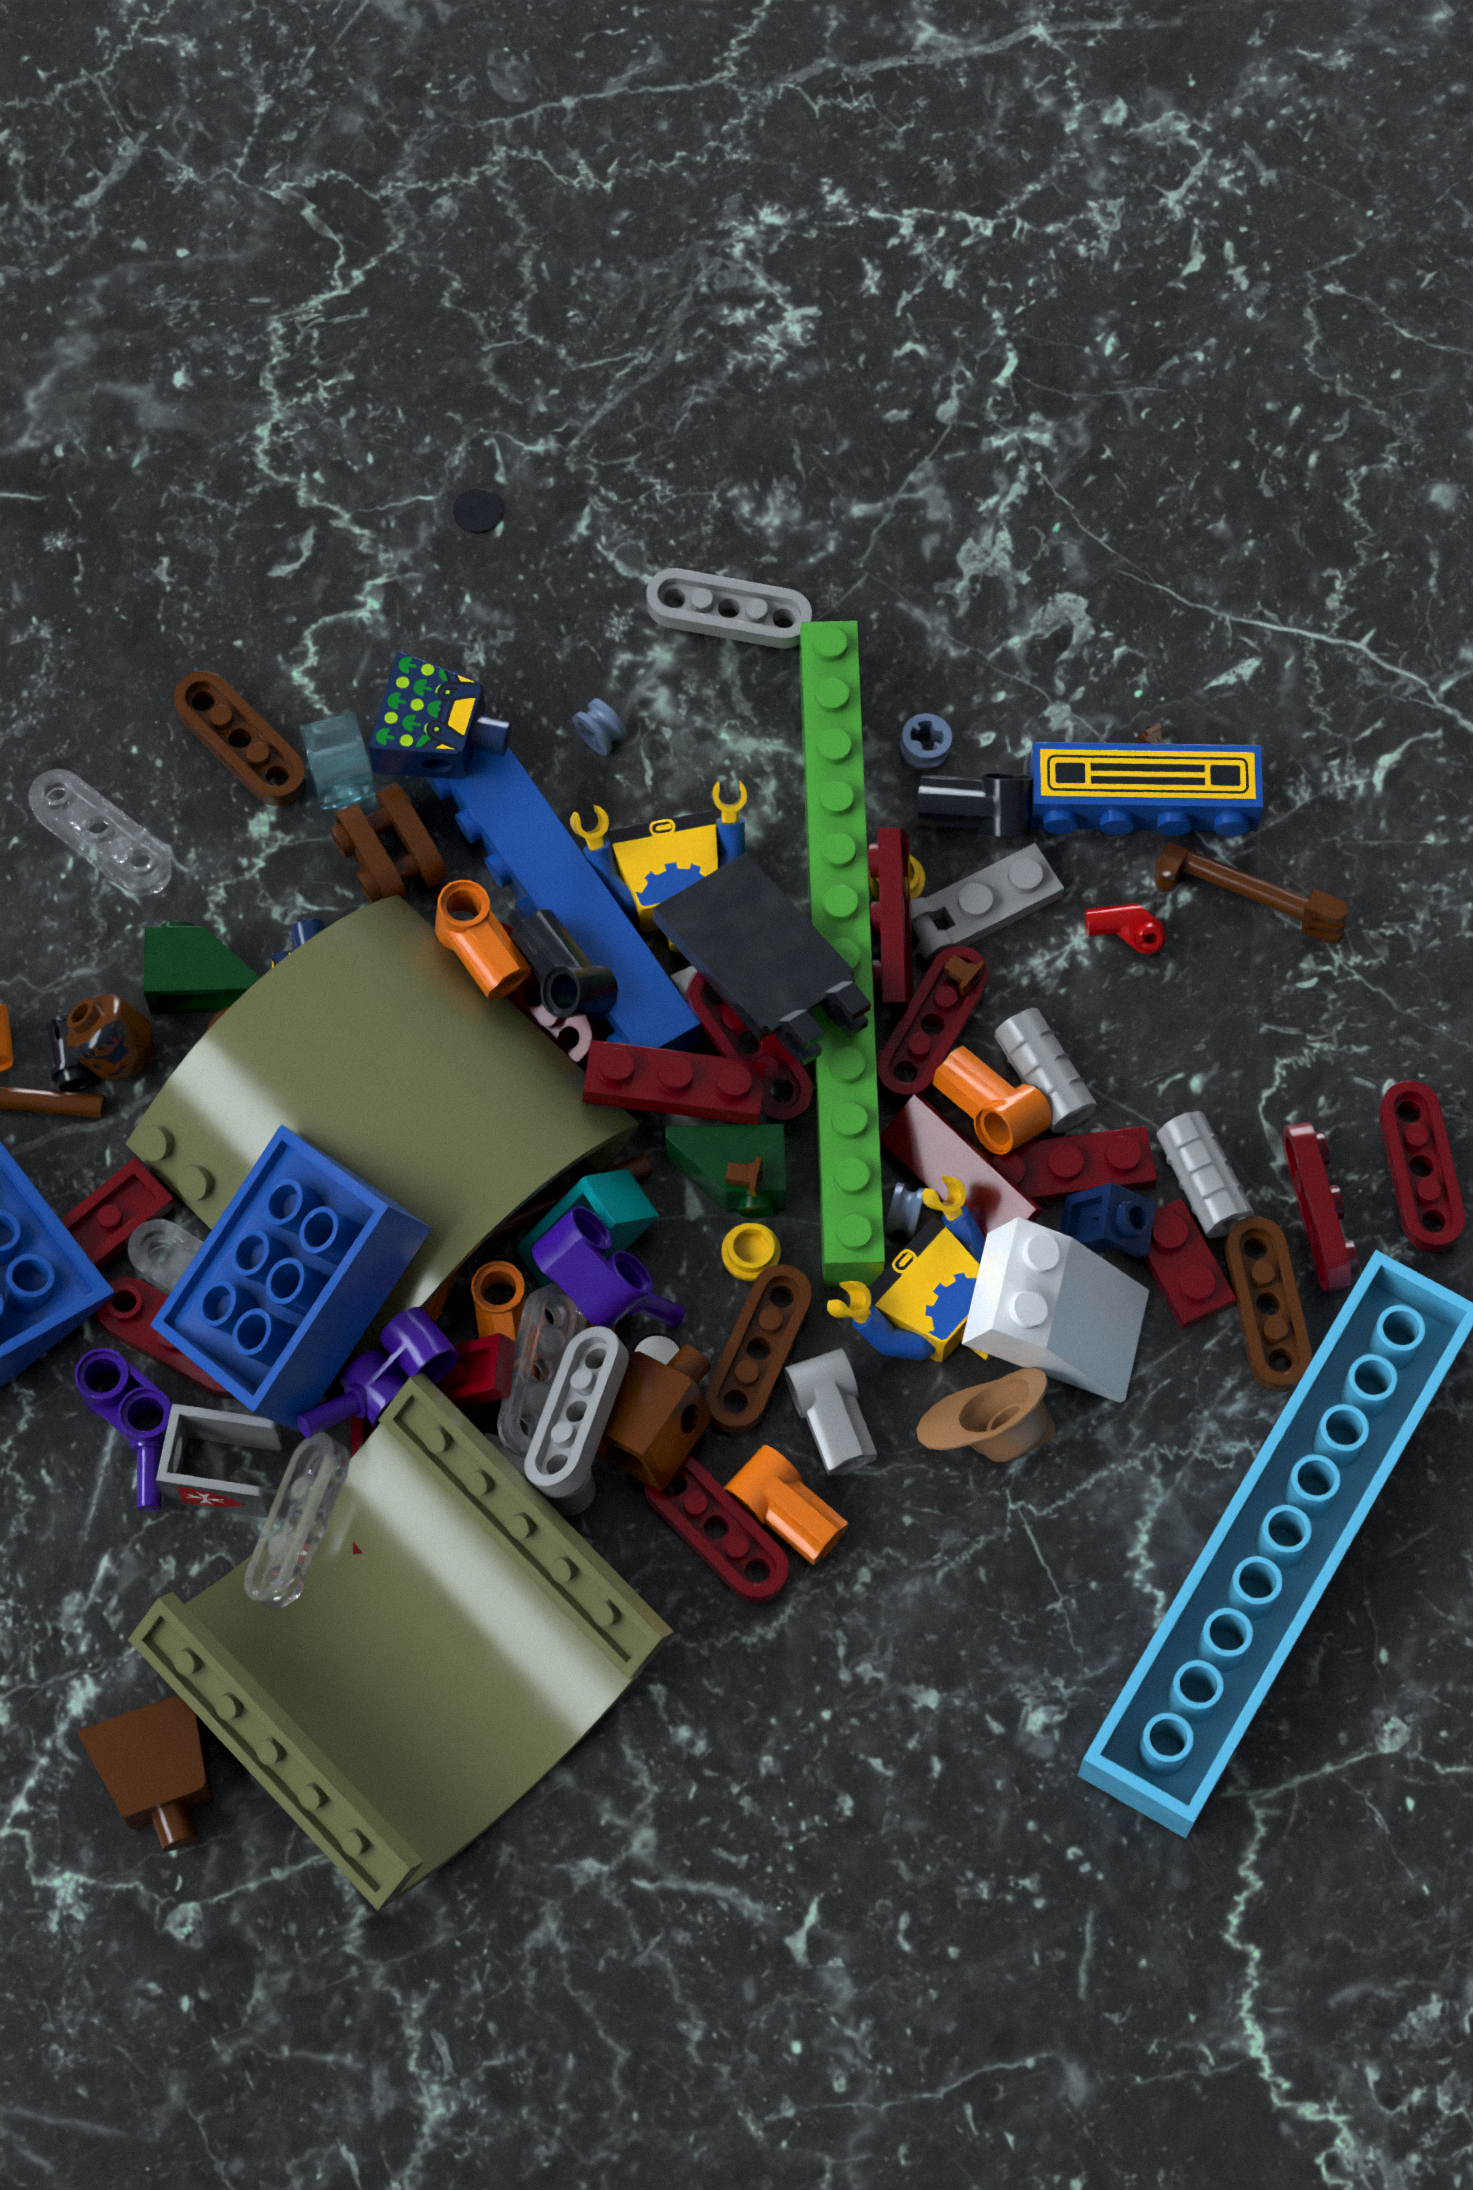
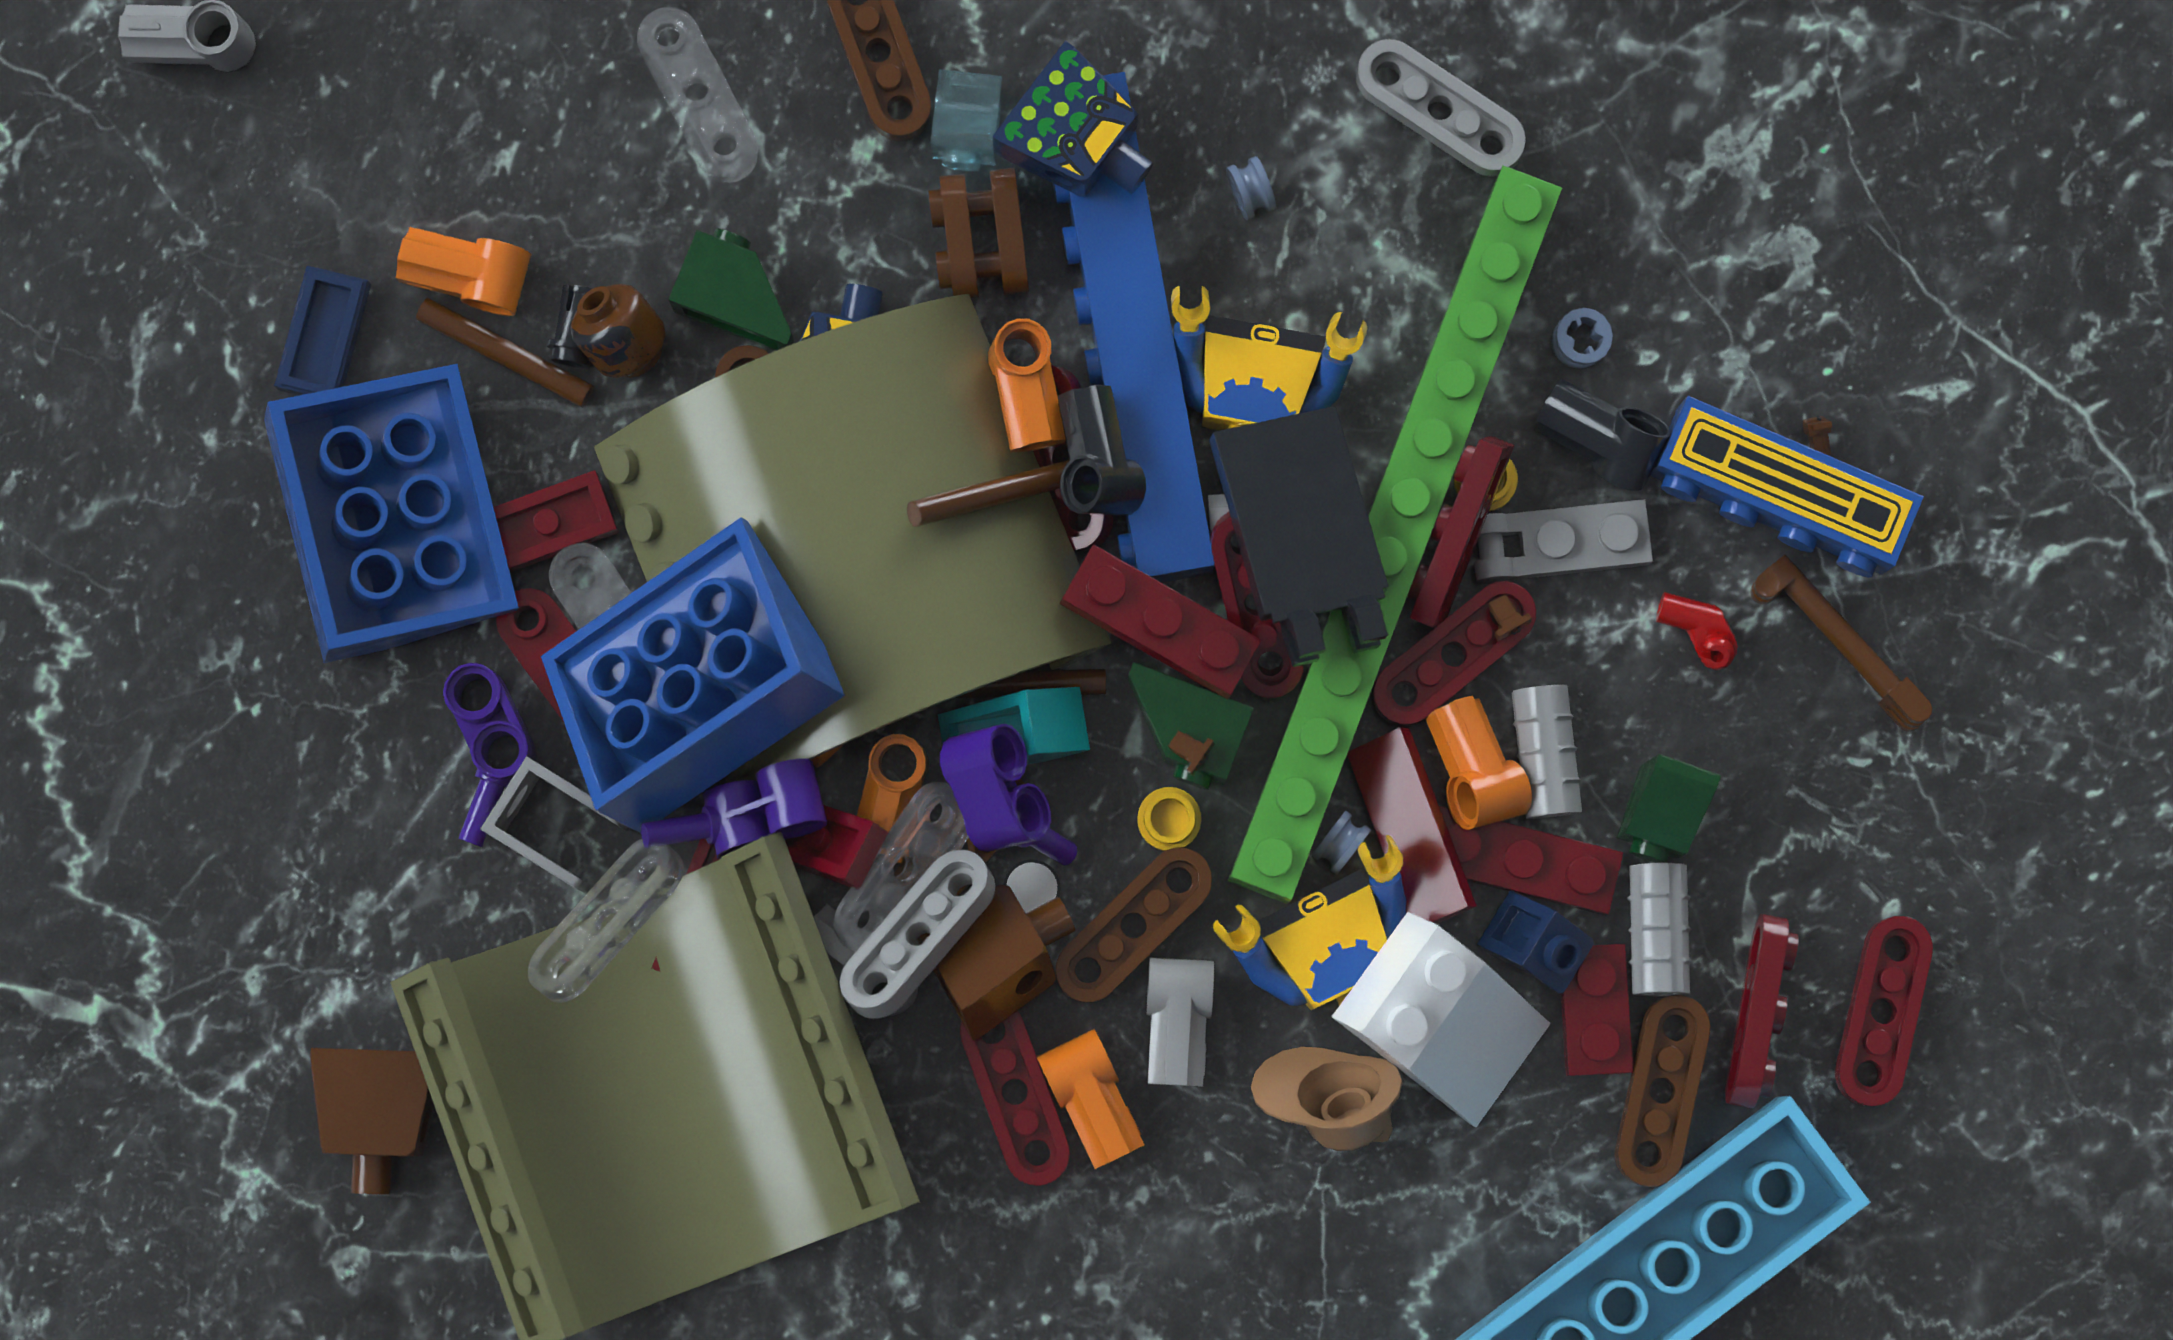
camera: 20 degrees right, 15 degrees up
(482, 1032) = (985, 494): none -> reddish brown bar
(1164, 1065) = (1666, 808): none -> dark green slope

